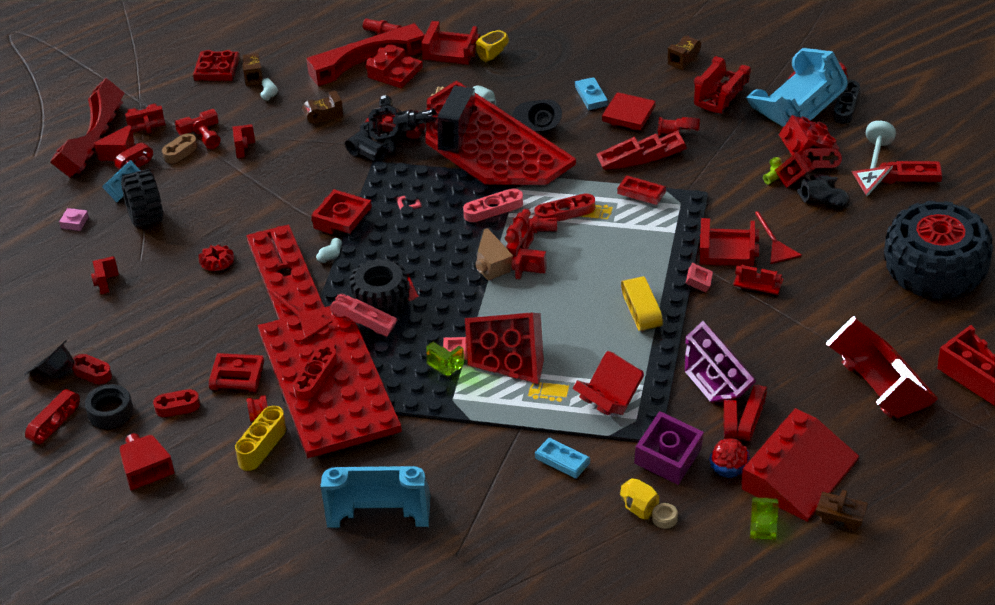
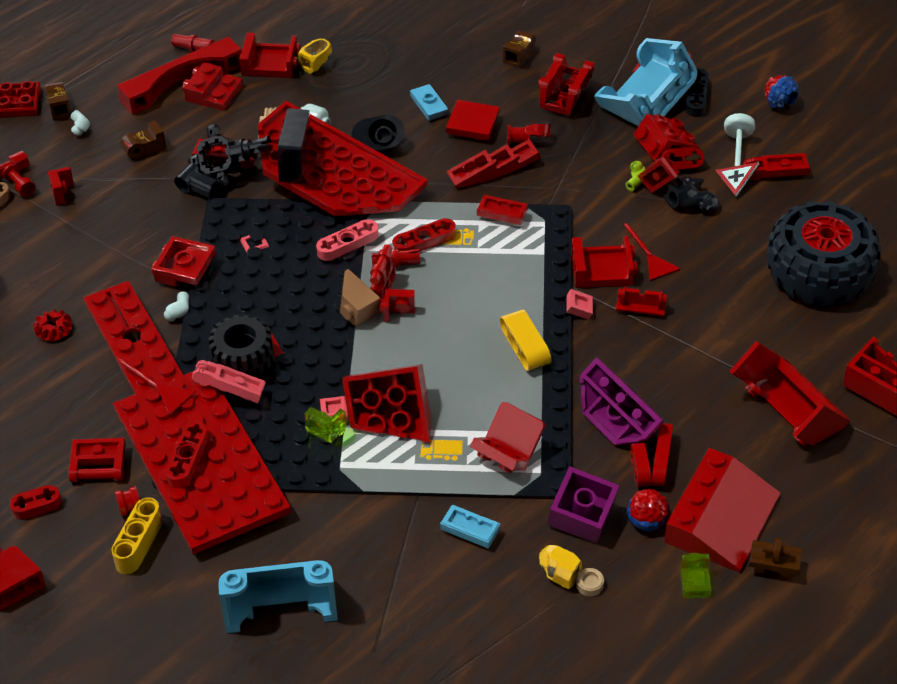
camera: 10 degrees left, 5 degrees up
(927, 104) = (780, 91): none -> blue piece

